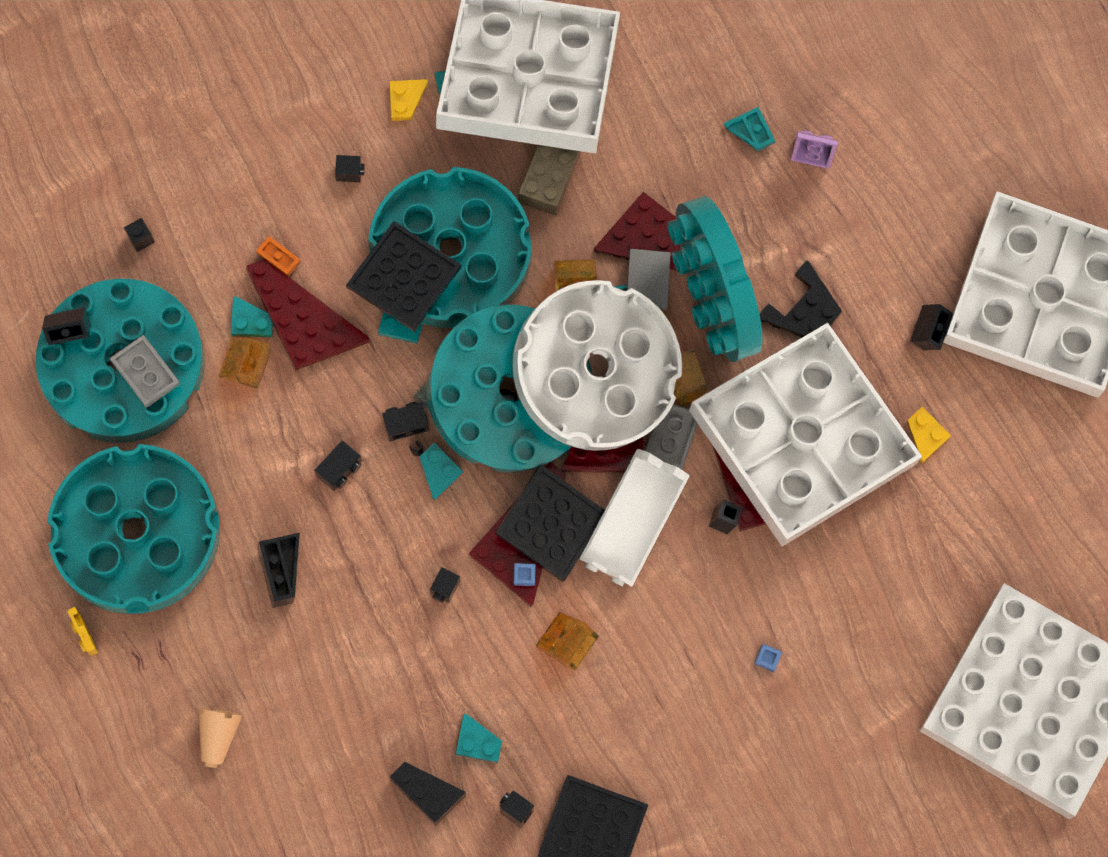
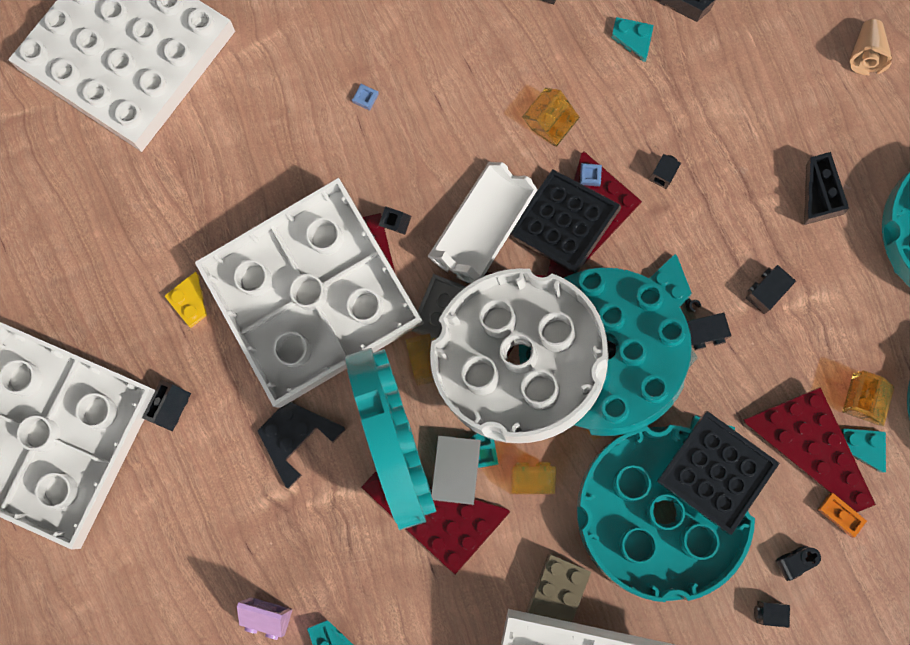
camera: 175 degrees left, 5 degrees up
(324, 213) = (794, 563): none -> black piece

